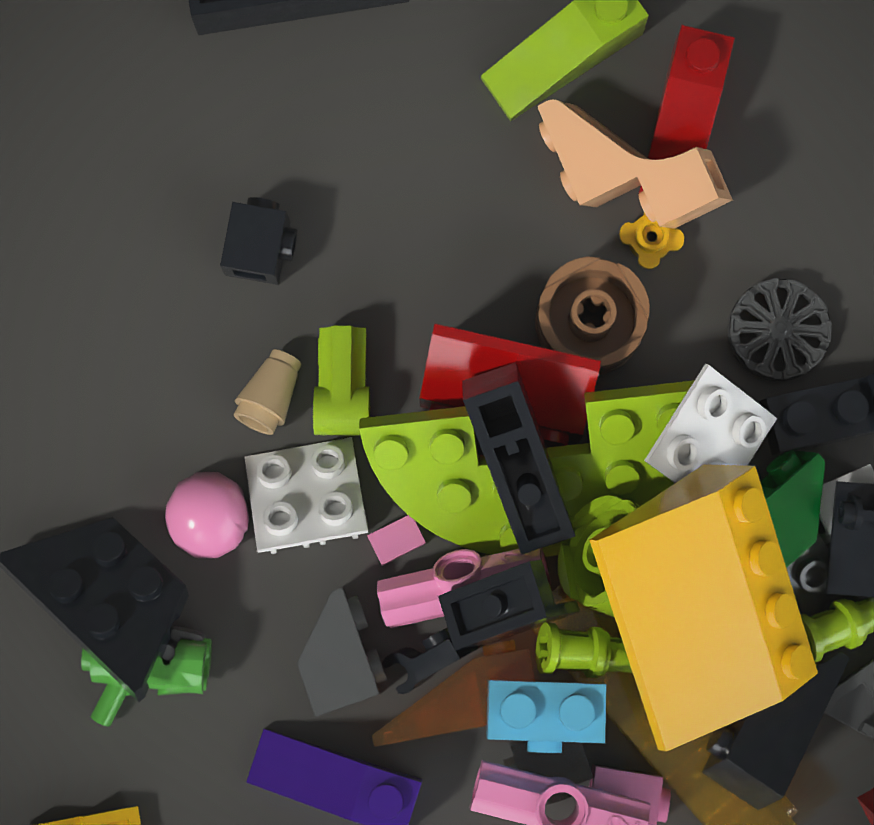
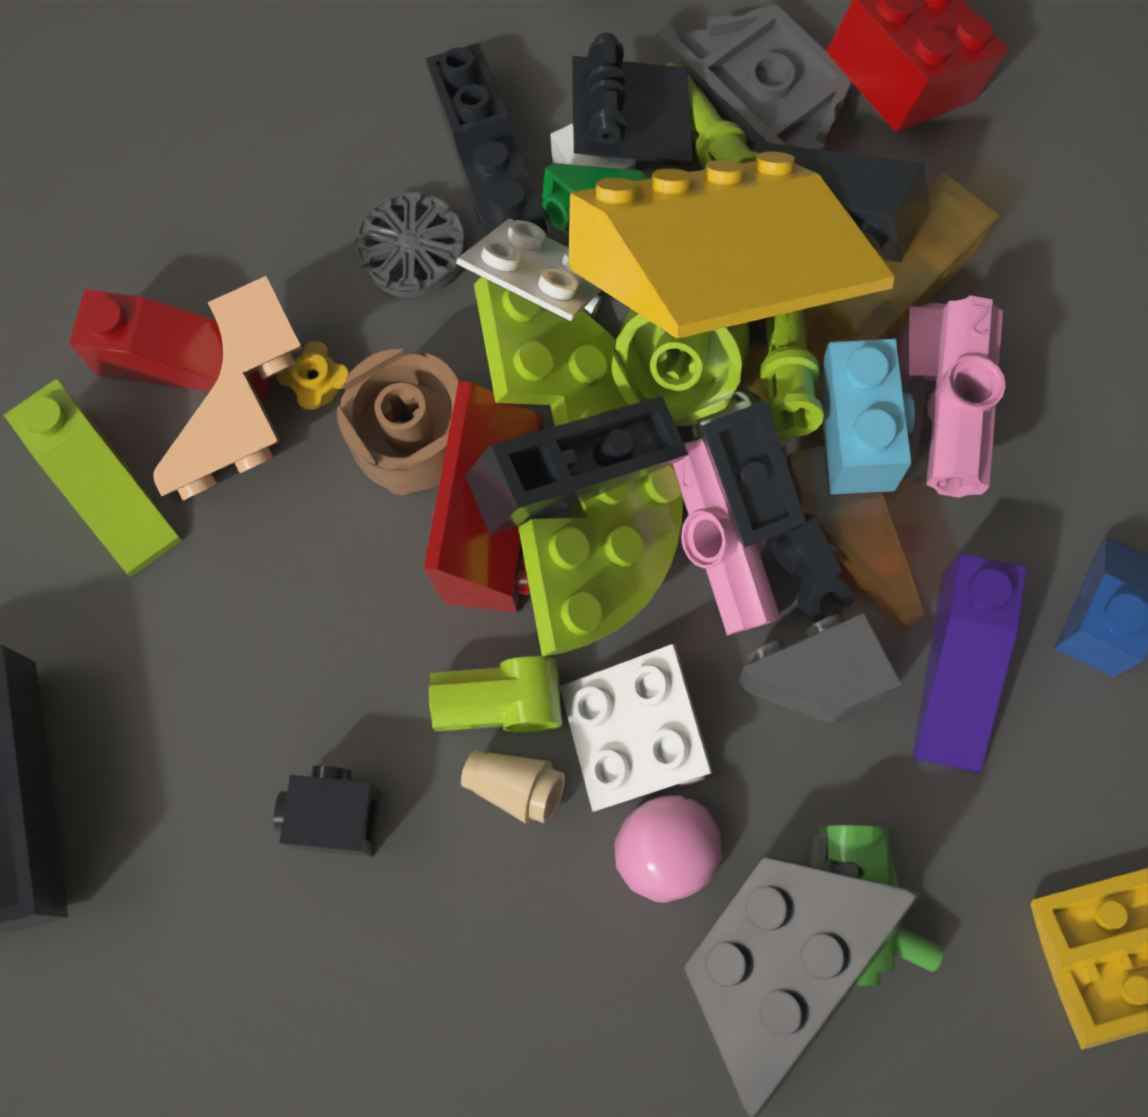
camera: 90 degrees left, 10 degrees down
(396, 540) = (675, 622): bright pink piece -> none

